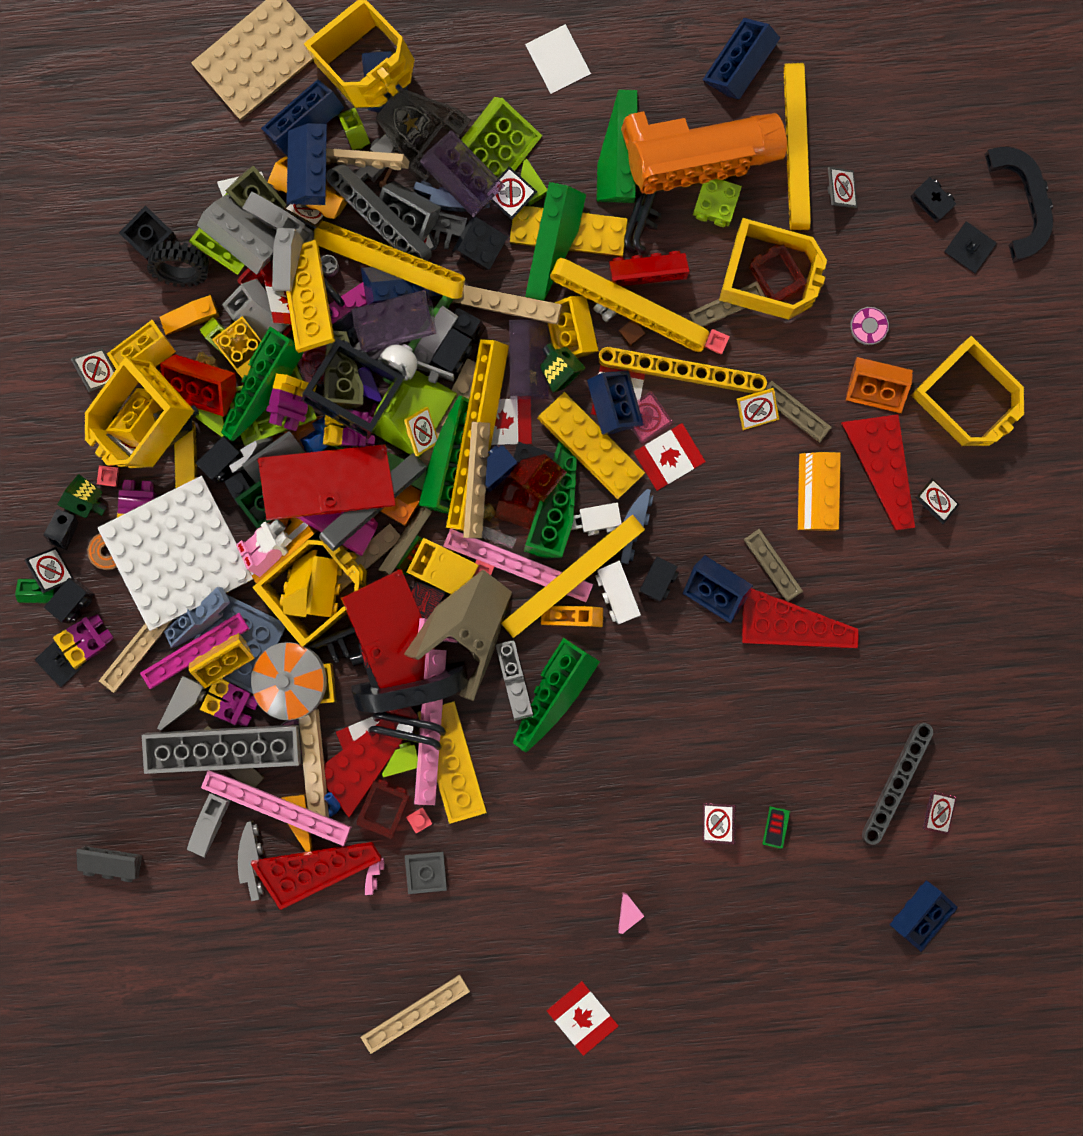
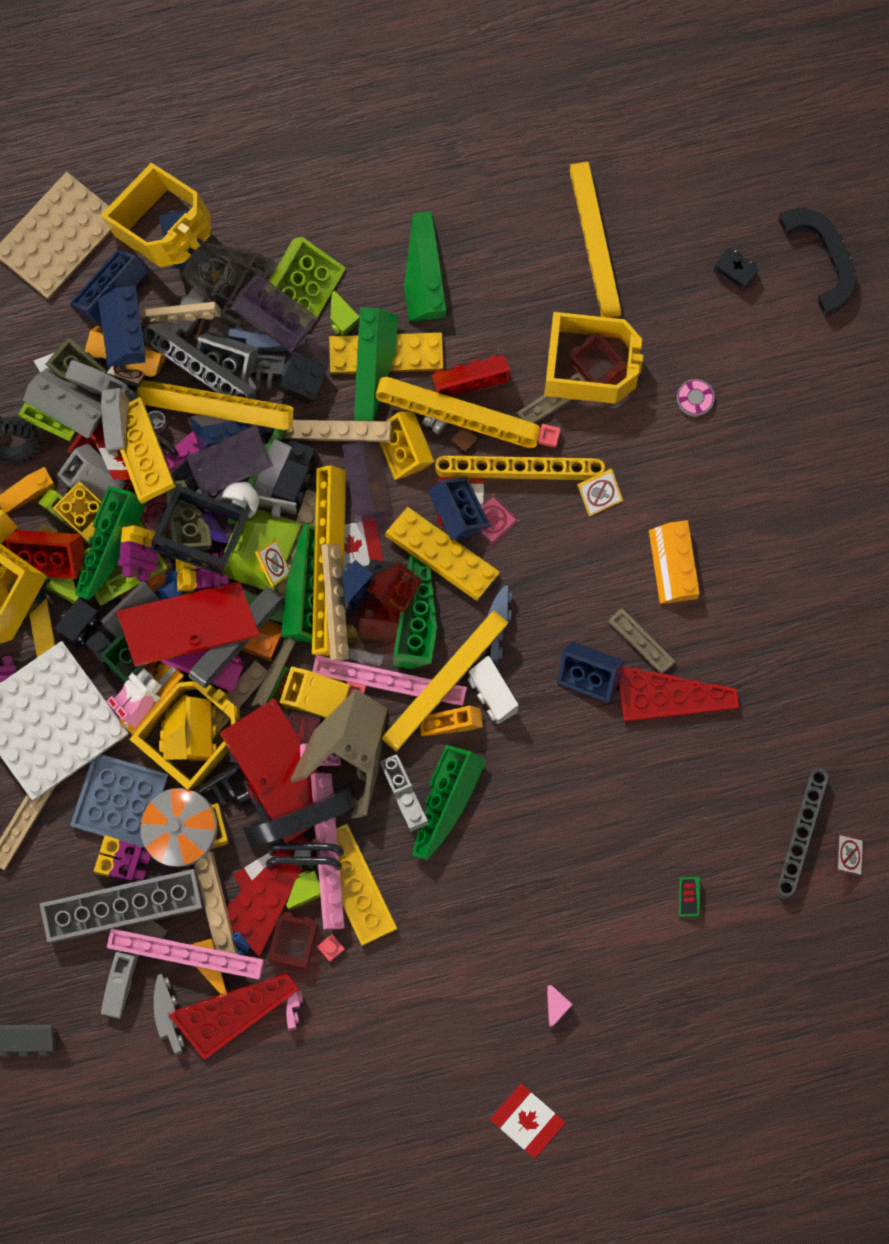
camera: 10 degrees left, 10 degrees down
(182, 657) = (79, 814): dark pink tile -> none
(185, 698) = (75, 866): light grey slope -> none
(198, 619) = (78, 783): sand blue slope -> none
(221, 660) = (109, 817): yellow slope -> none
(249, 451) = (106, 607): light grey slope -> none
(354, 129) = (161, 289): lime slope -> none
(415, 1014) = (357, 1142): tan plate -> none
(425, 872) = (345, 998): dark grey plate -> none
(514, 194) = (327, 326): piece -> none
(558, 59) = (349, 194): white sticker -> none
(560, 367) = (399, 482): dark green torso -> none
(598, 519) = (460, 623): white brick -> none
(640, 215) = (453, 327): black piece -> none
(658, 579) = (529, 672): black brick -> none
(669, 456) = (521, 553): sticker -> none
(676, 156) = (479, 264): orange piece -> none
(717, 202) = (526, 302): lime brick -> none
(719, 823) = (631, 901): piece -> none
(742, 58) = (527, 166): dark blue slope -> none
(799, 413) = (642, 492): dark tan tile -> none
(842, 187) = (645, 271): piece -> none
(879, 385) = (715, 452): orange slope -> none
(883, 459) = (731, 521): red wing -> none
(923, 915) = (852, 960): dark blue slope -> none
(937, 501) = (791, 553): piece -> none
(970, 247) = (780, 309): black piece -> none
(1003, 425) = (825, 418): yellow container -> none

